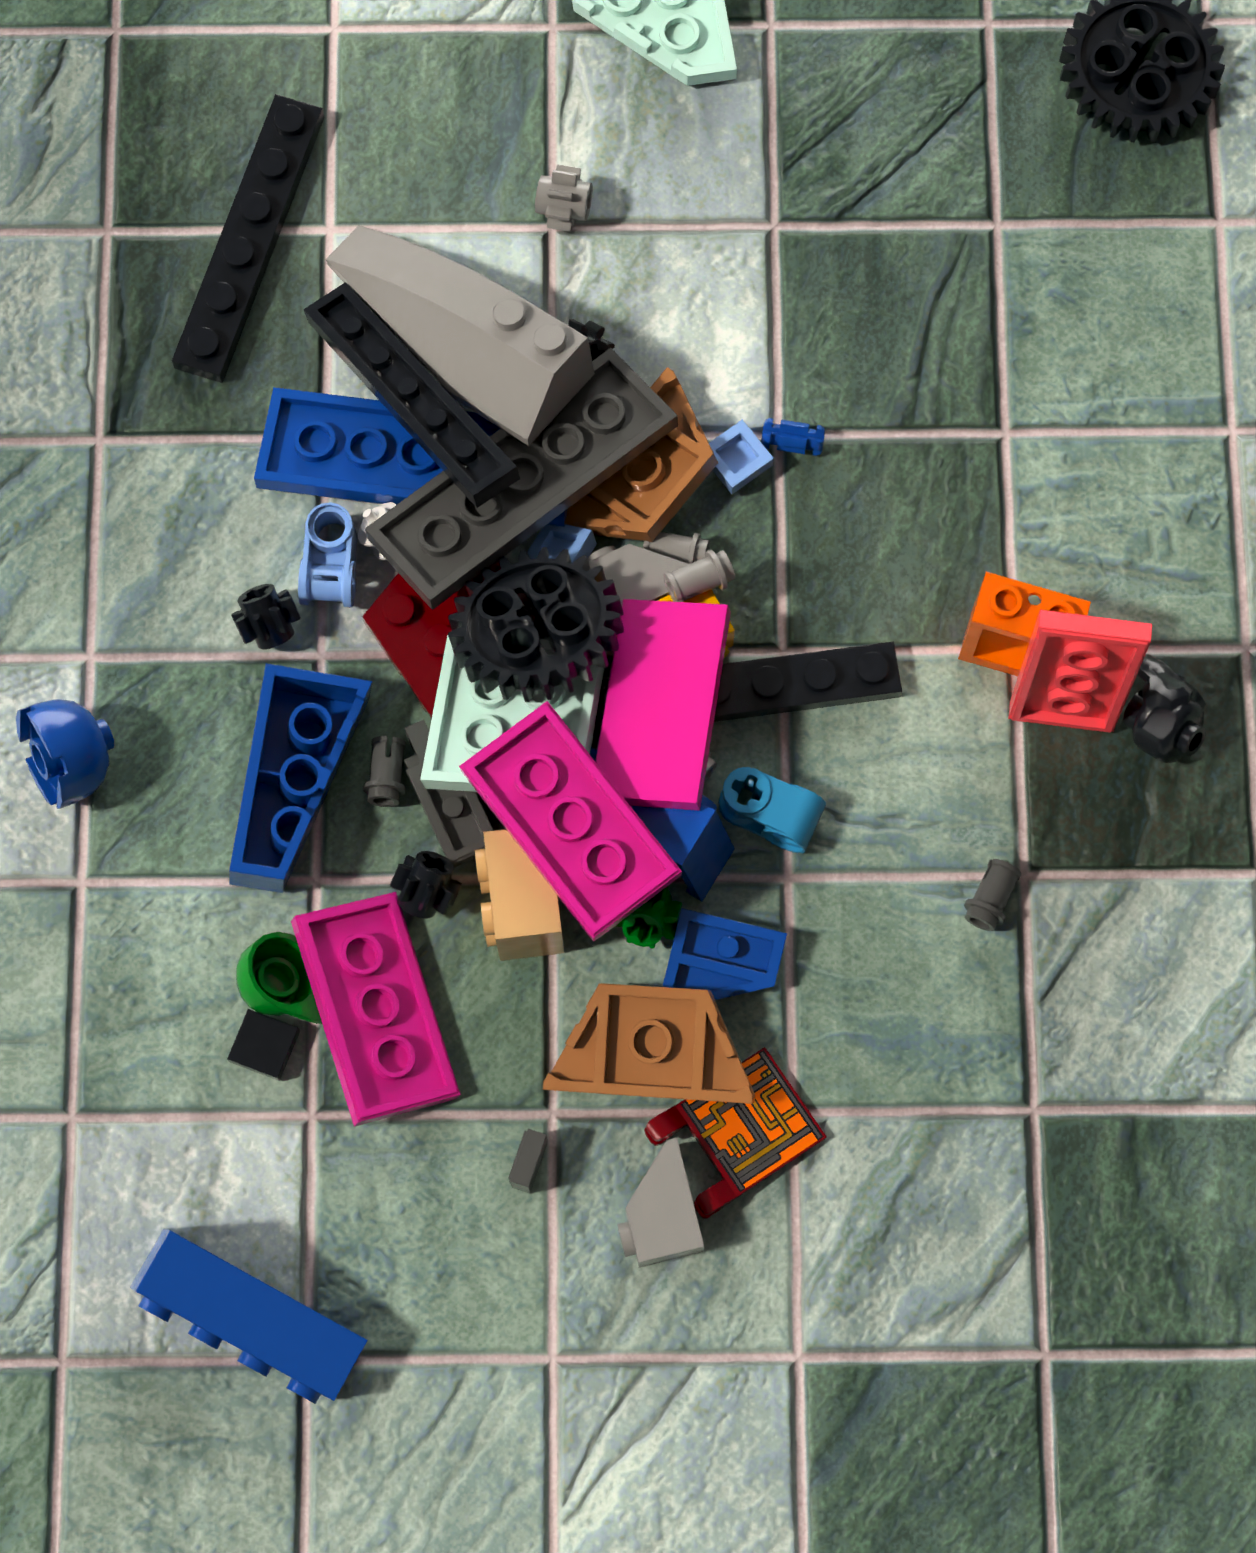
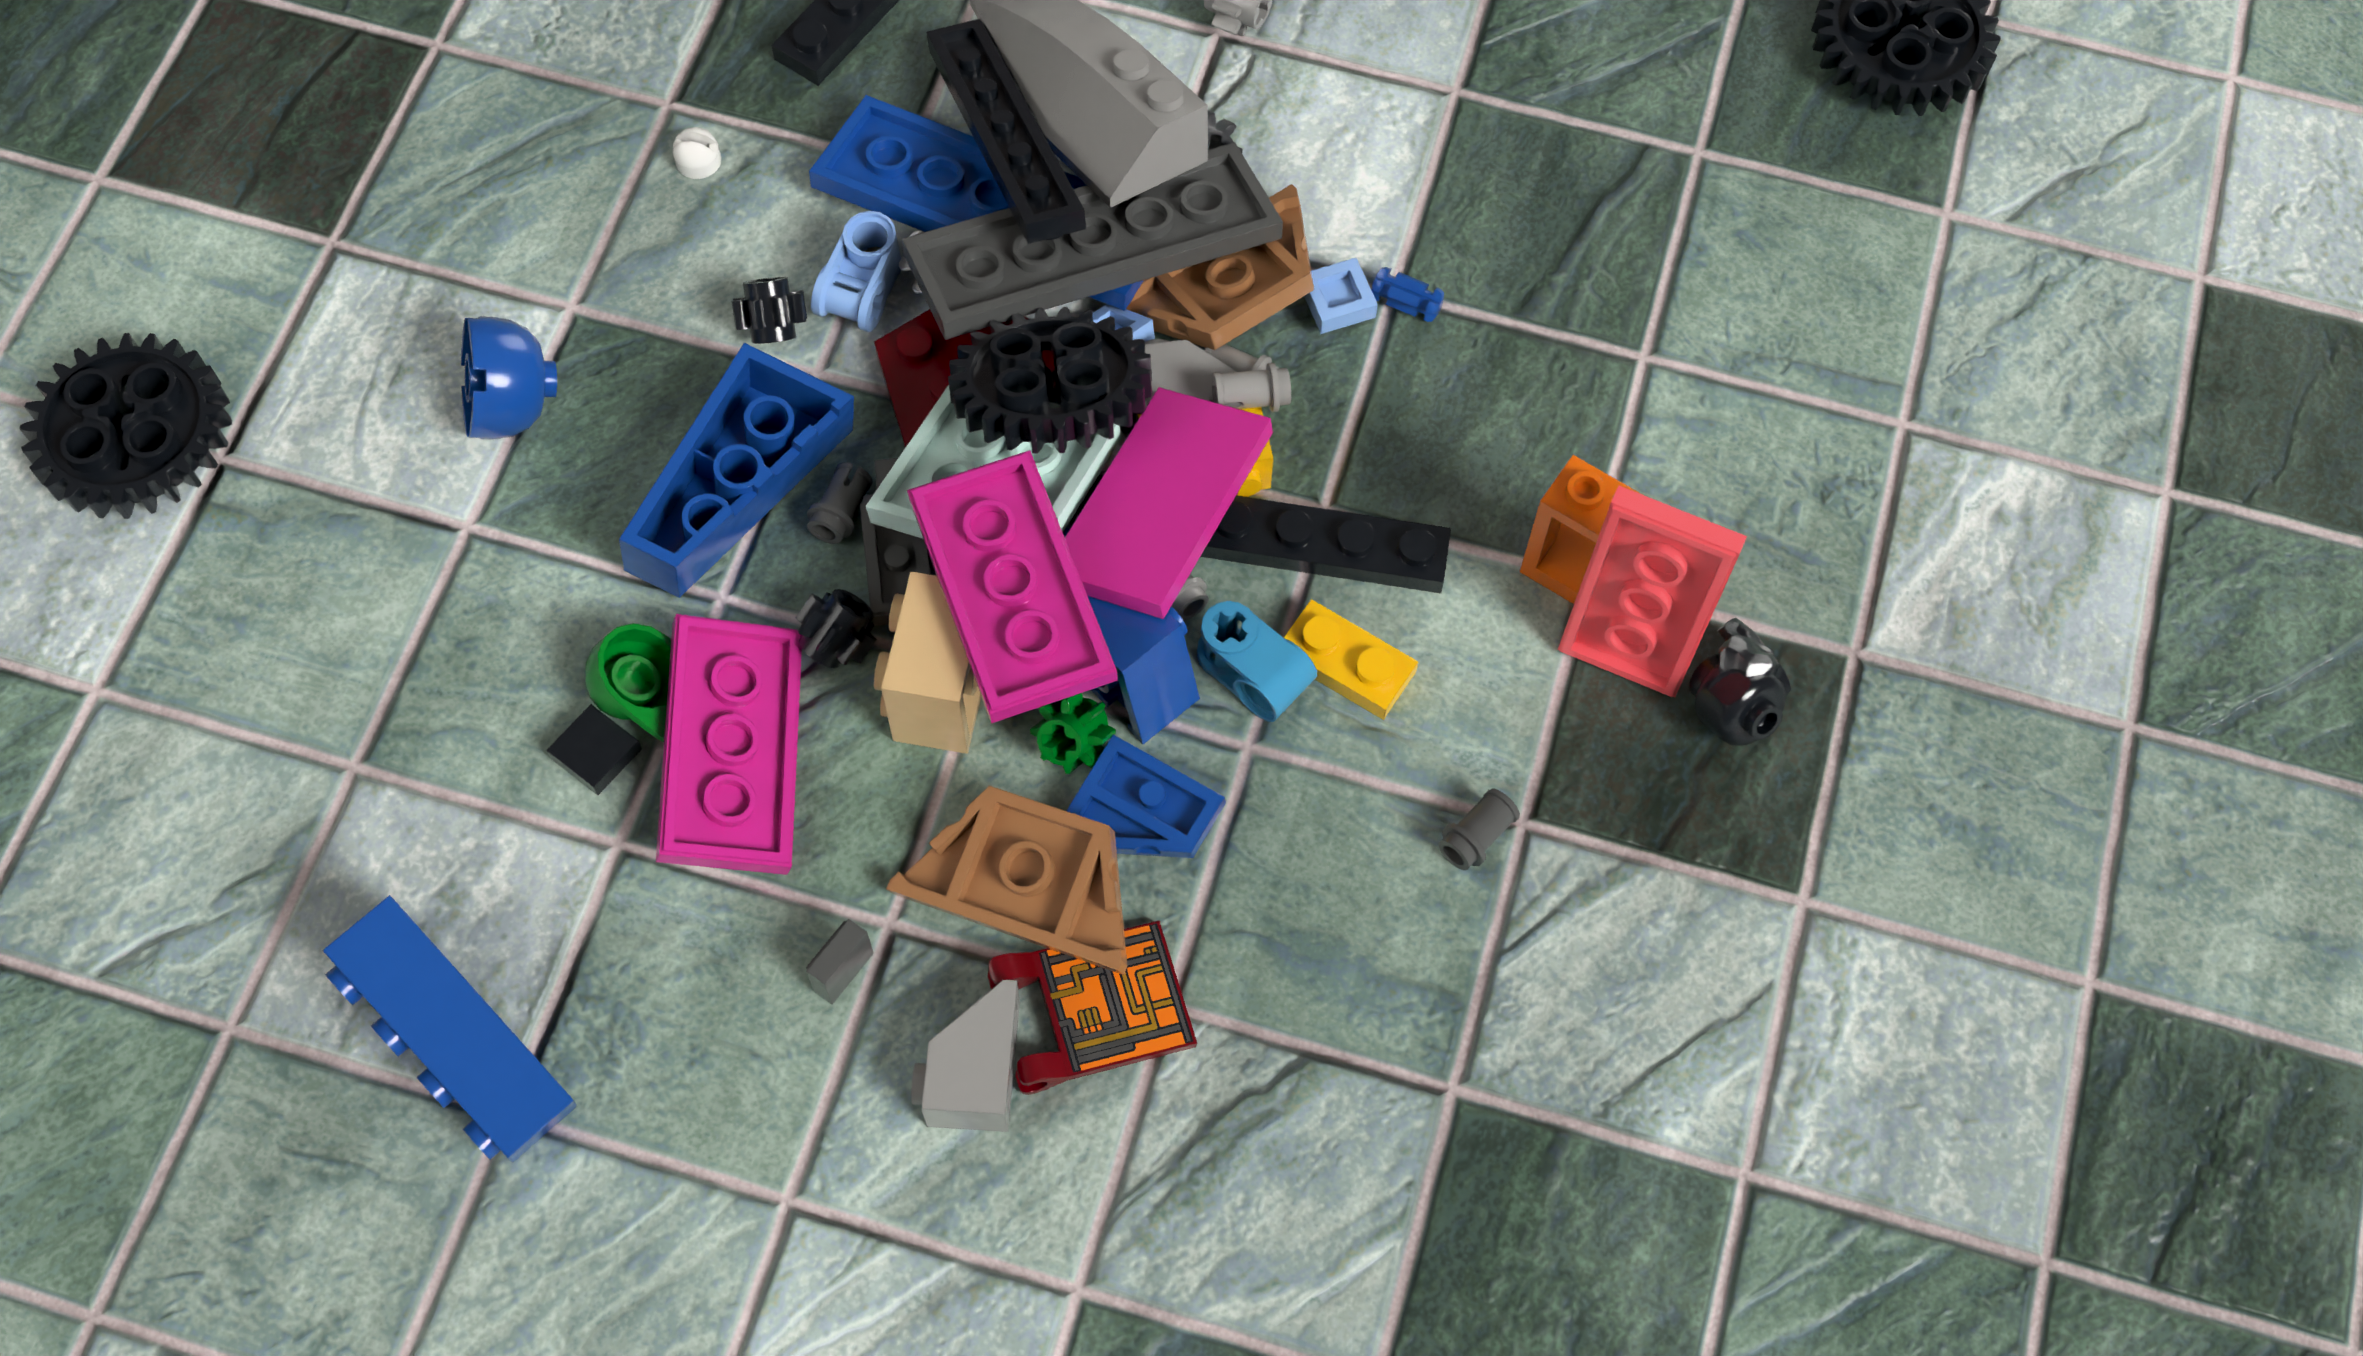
camera: 15 degrees right, 10 degrees down
(143, 490) = (696, 153): none -> white hinge
(846, 779) = (1352, 659): none -> yellow plate

